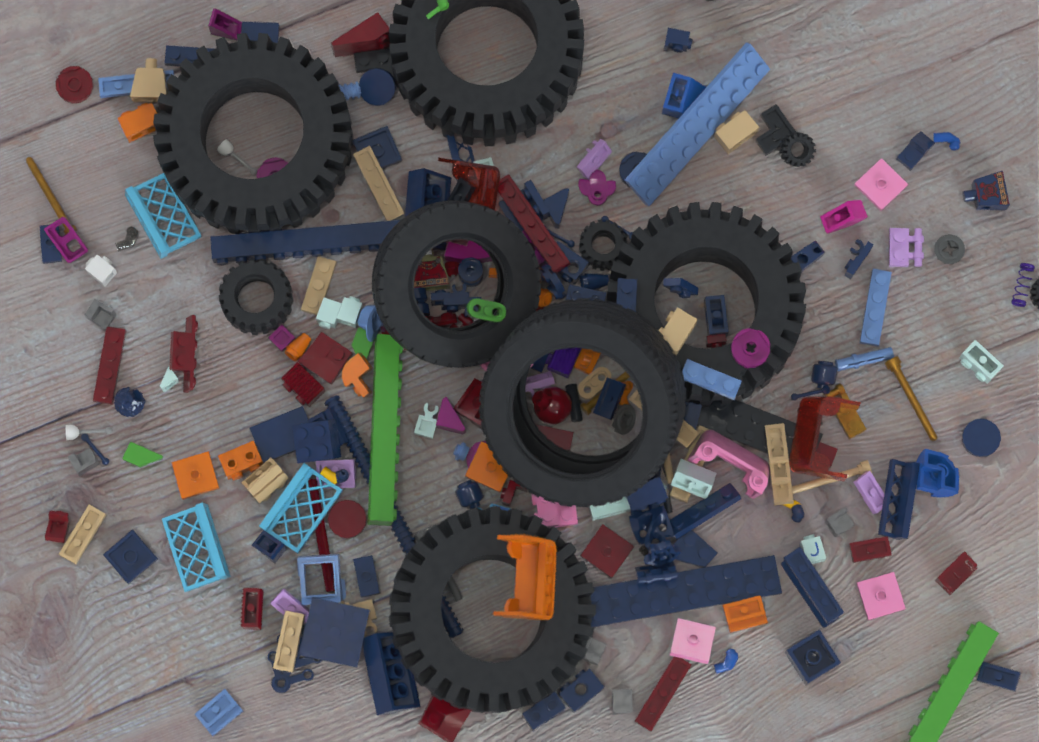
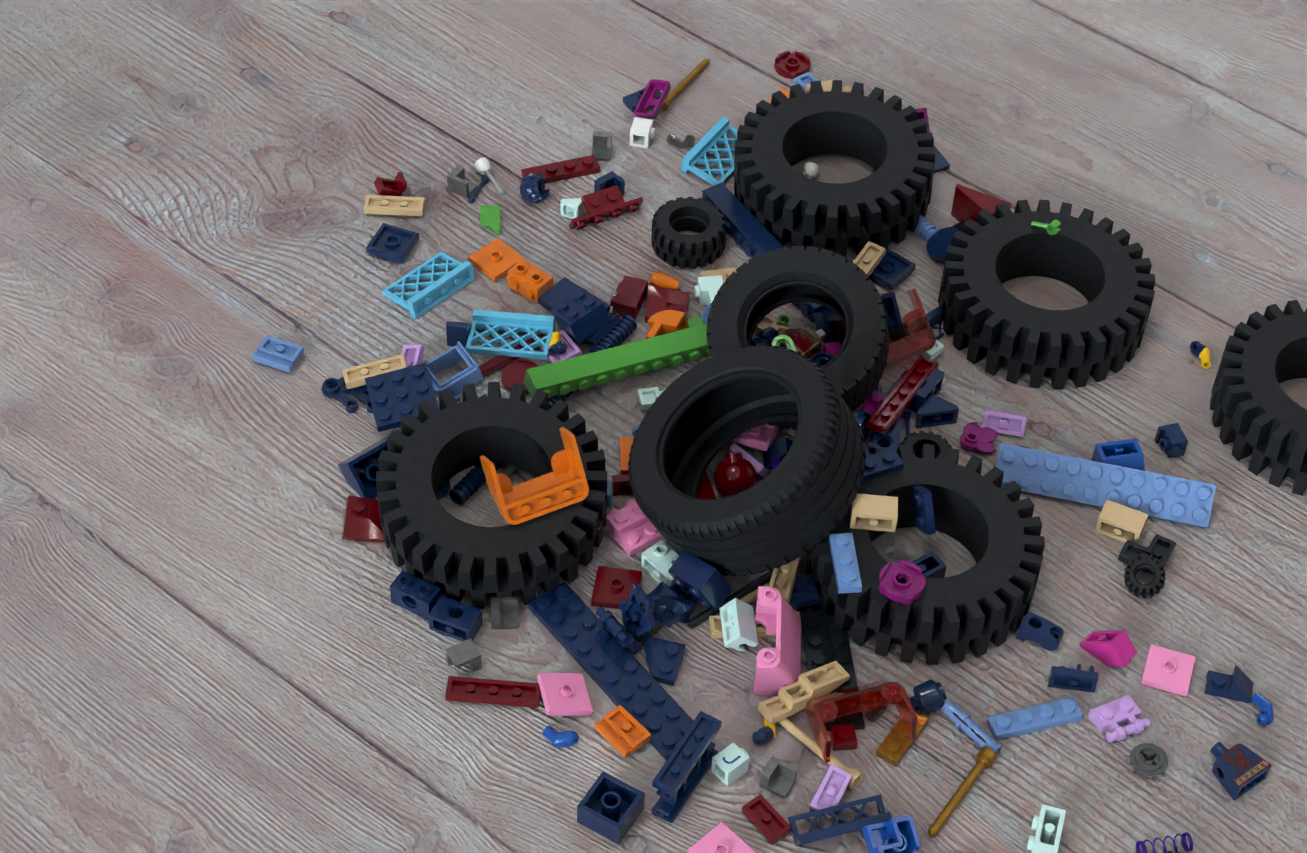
camera: 60 degrees right, 30 degrees down
(152, 336) = (609, 180): none -> dark blue bracket
(252, 608) = (391, 335): dark red brick -> none
(265, 480) = (520, 300): tan brick -> none
(281, 338) = (664, 265): magenta plate -> none
(469, 494) = (610, 450): dark blue head -> none
(704, 510) = (716, 652): dark blue plate -> none

